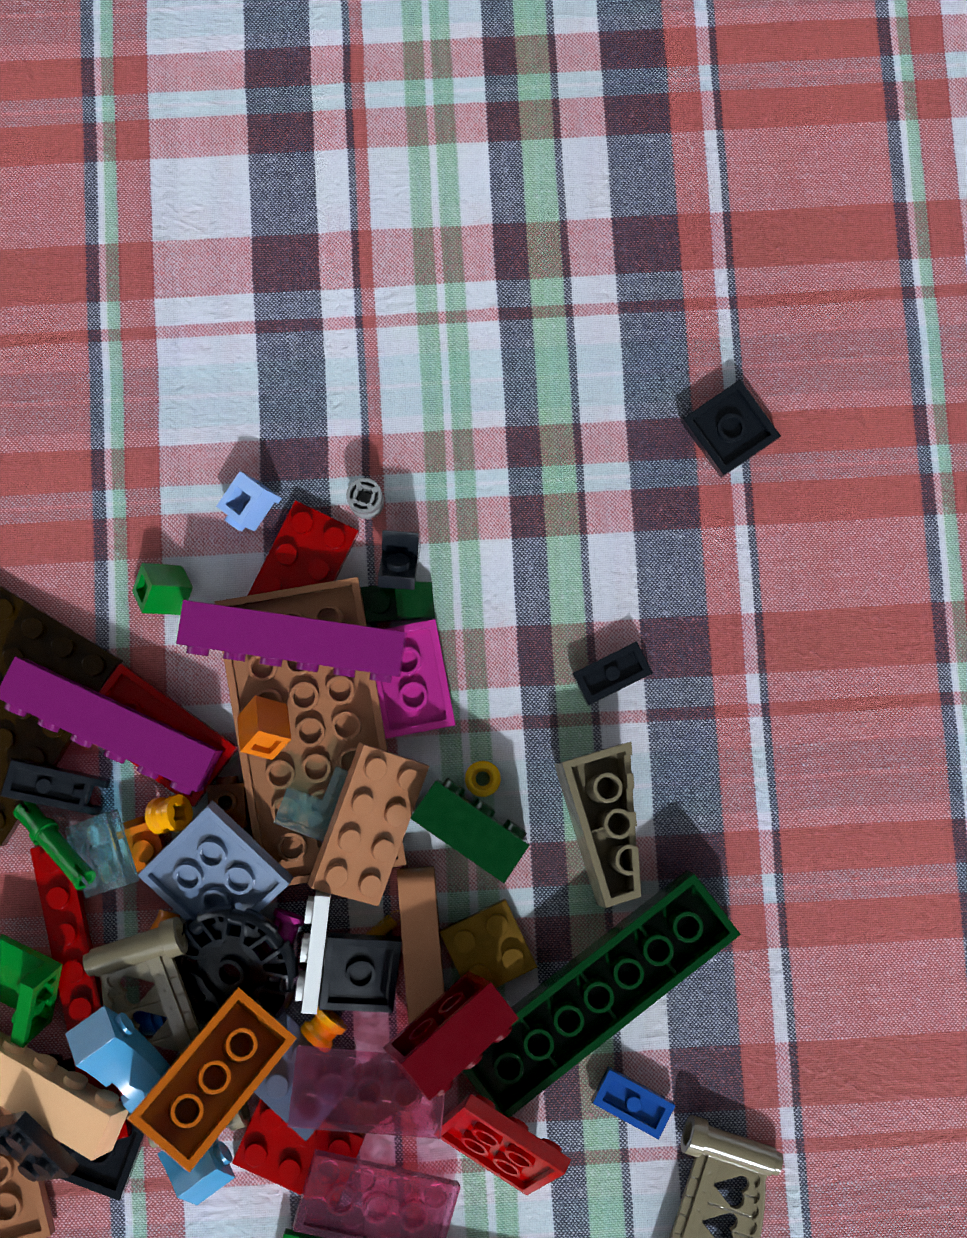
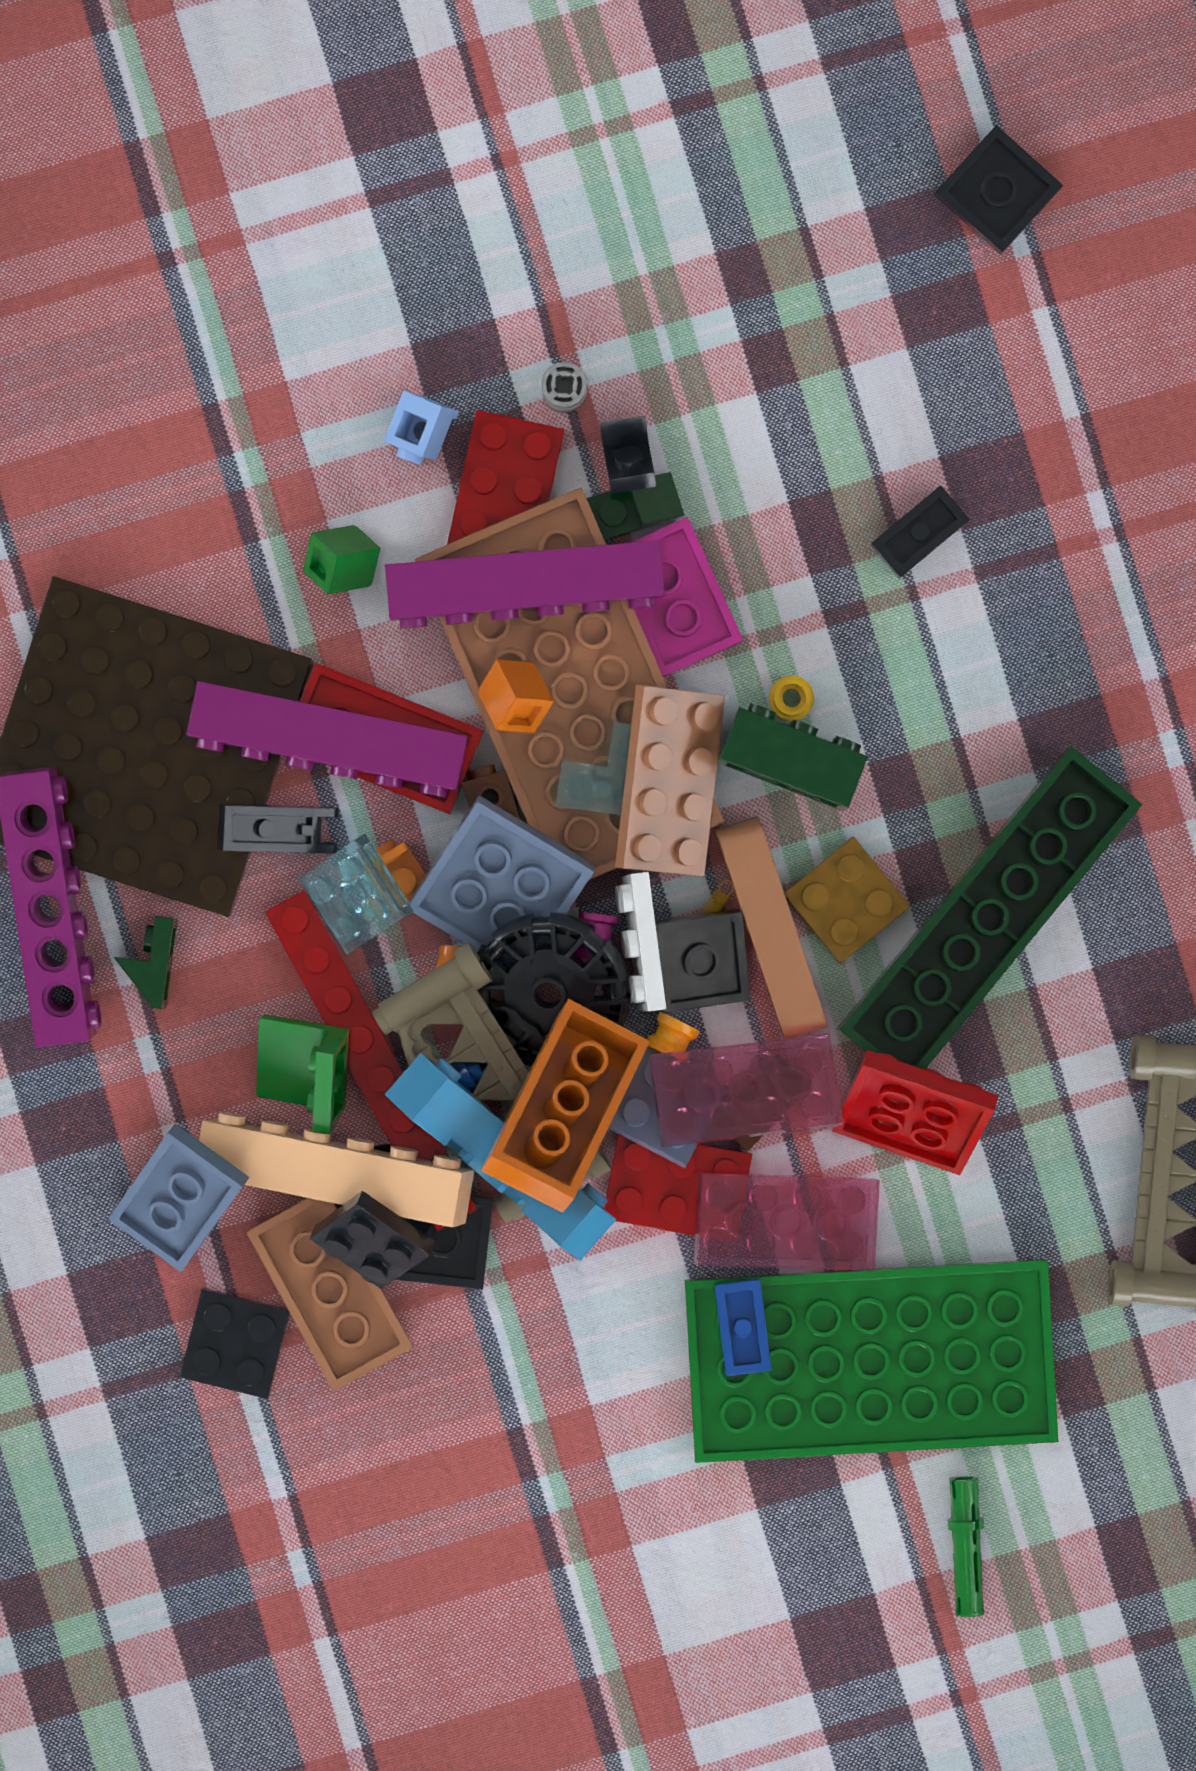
camera: 10 degrees left, 5 degrees up
(45, 833) = (282, 887): green pin -> none
(168, 814) = (424, 828): light orange wheel -> none
(451, 1035) = (828, 995): dark red brick -> none
(604, 820) = (946, 704): dark tan wedge -> none
(633, 1102) = (1061, 1037): blue plate -> none

